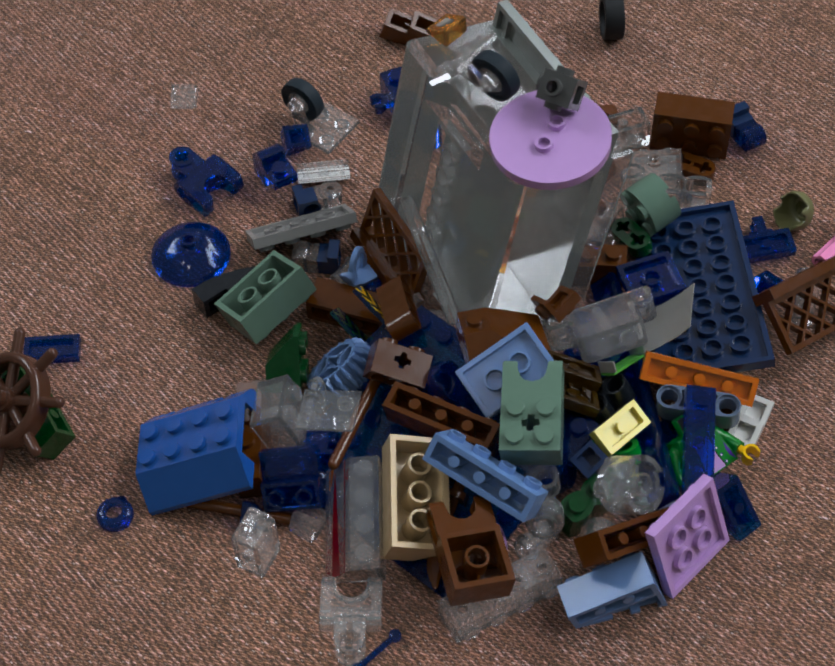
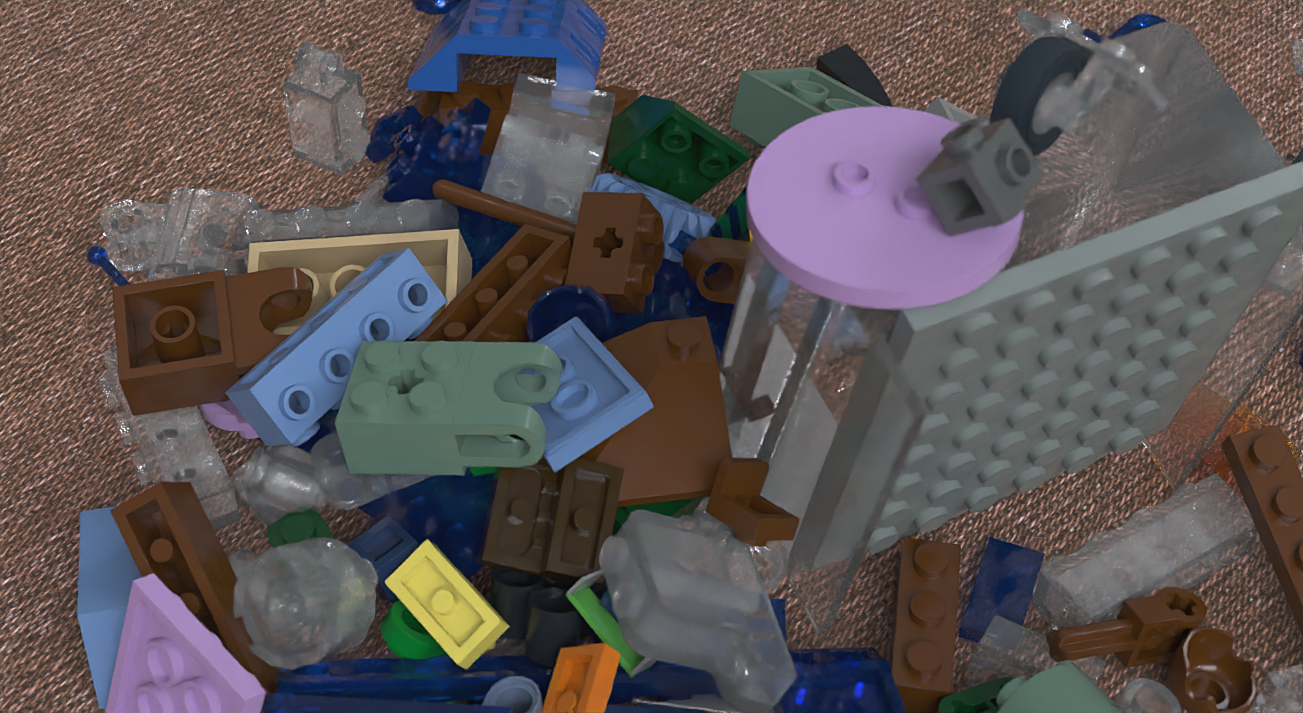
camera: 90 degrees right, 5 degrees down
(191, 254) = (945, 62): clear blue dish -> none
(448, 28) = (1210, 67): clear orange slope -> none

